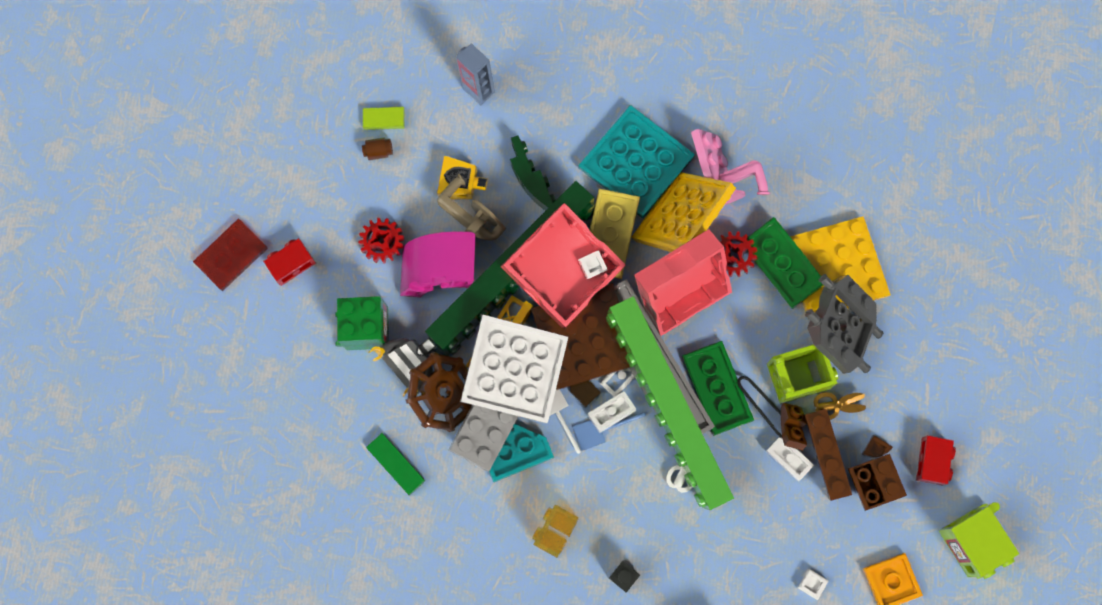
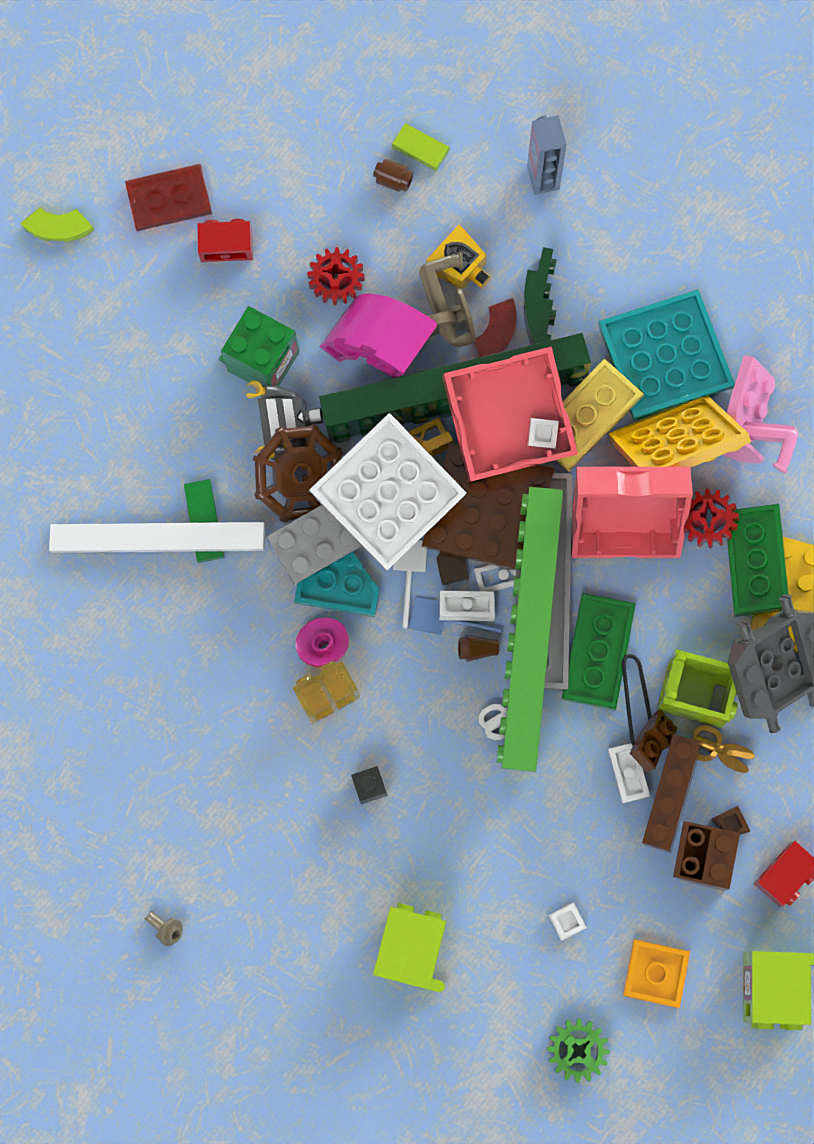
camera: 30 degrees right, 0 degrees up
(164, 322) = (57, 227): none -> lime tile
(370, 496) = (157, 537): none -> white tile
(515, 212) = (499, 330): none -> clear red tile
(522, 494) = (318, 633): none -> dark pink dish
(635, 437) = (476, 648): none -> reddish brown cone

